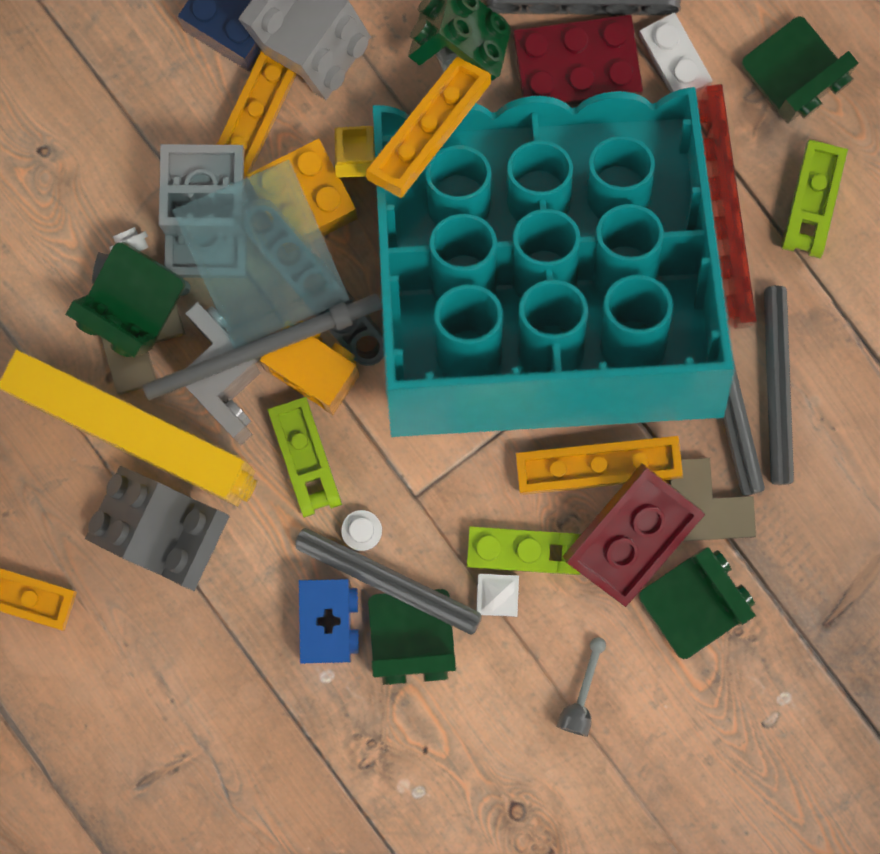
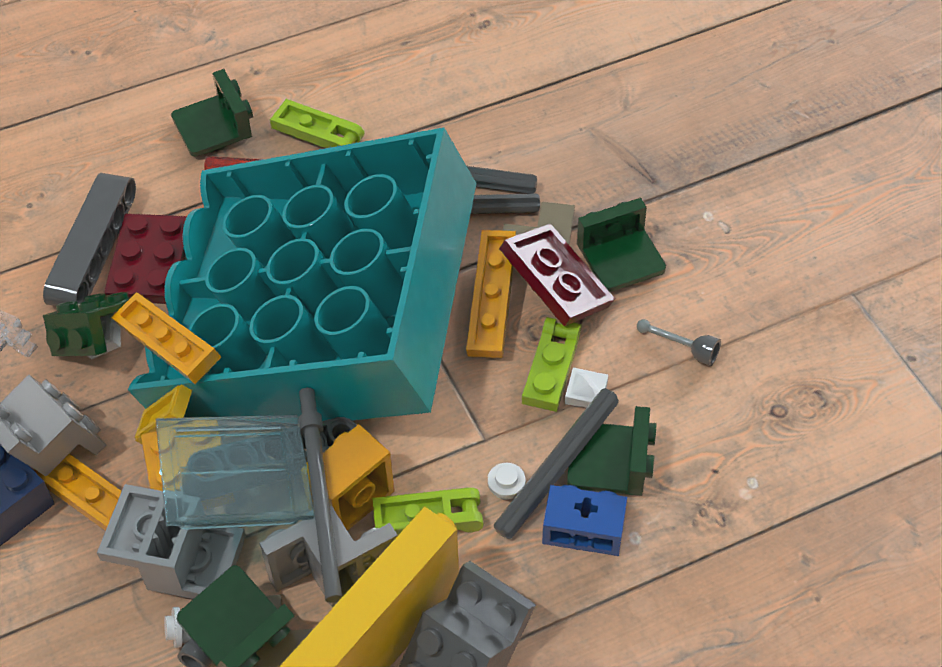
camera: 75 degrees left, 30 degrees down
(674, 55) = (170, 195): white plate -> none

